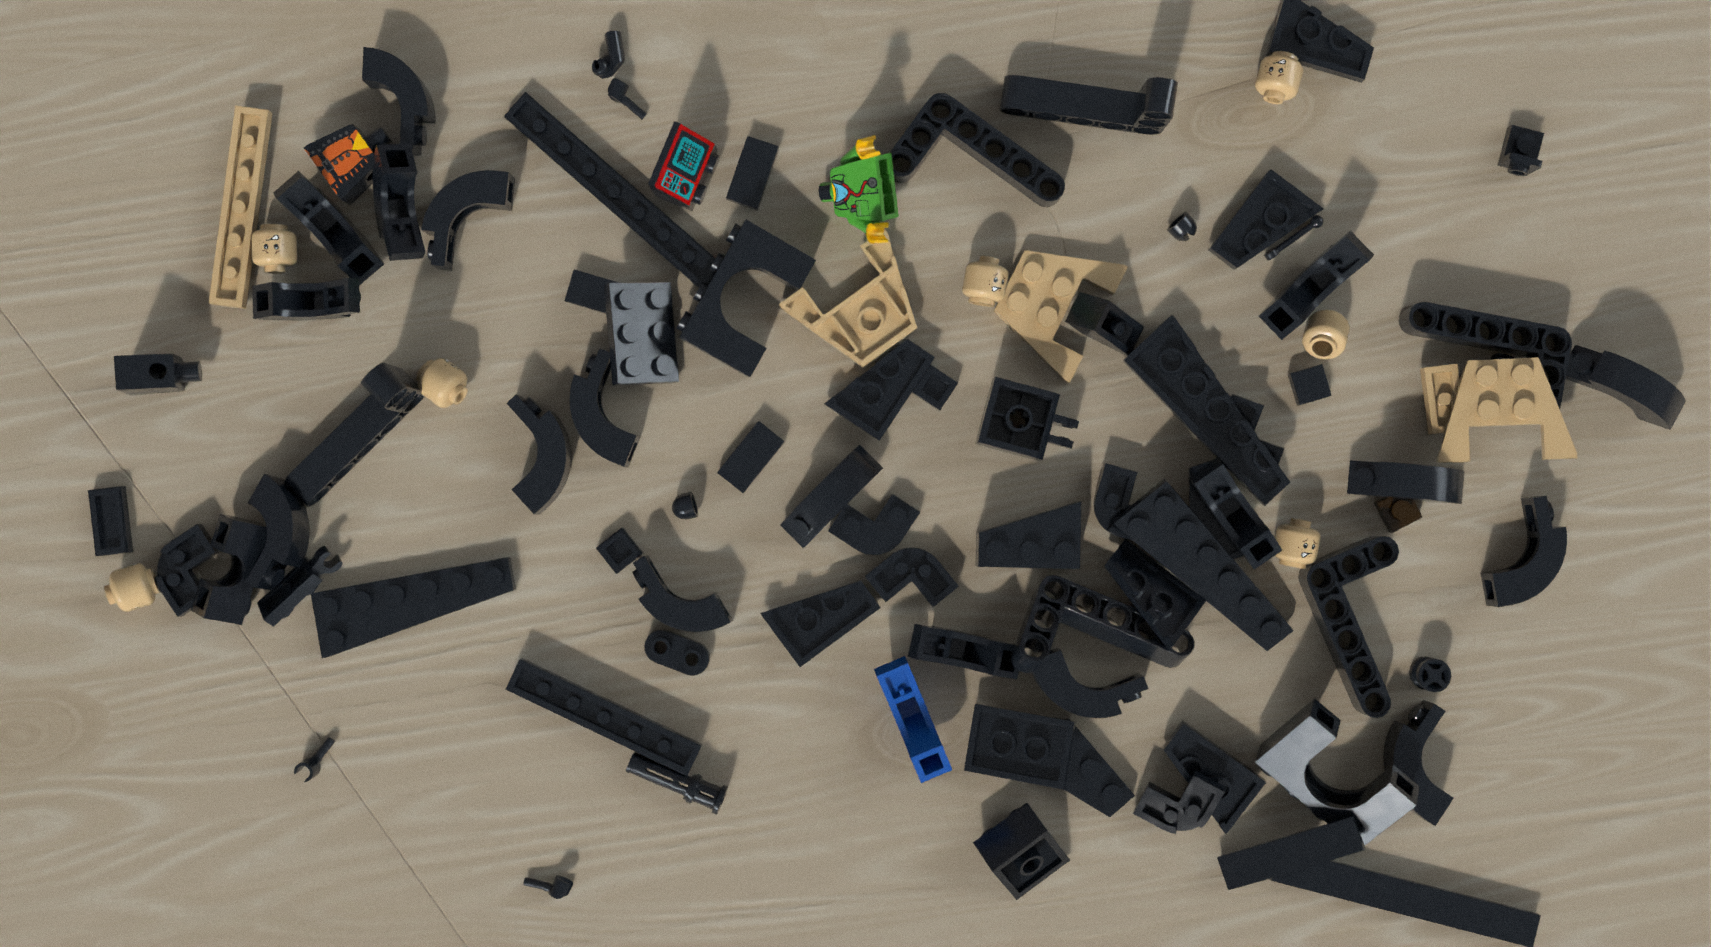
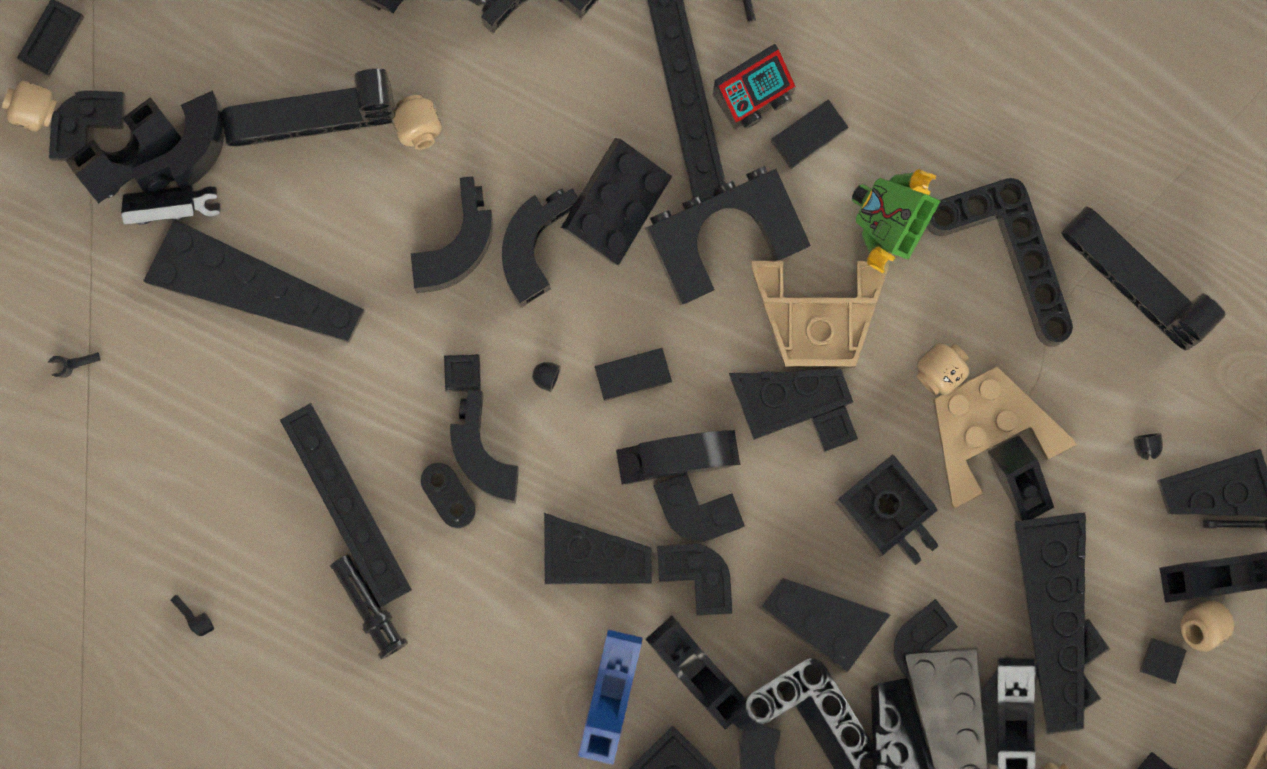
camera: 30 degrees right, 5 degrees down
(587, 291) = (596, 133): black tile -> none

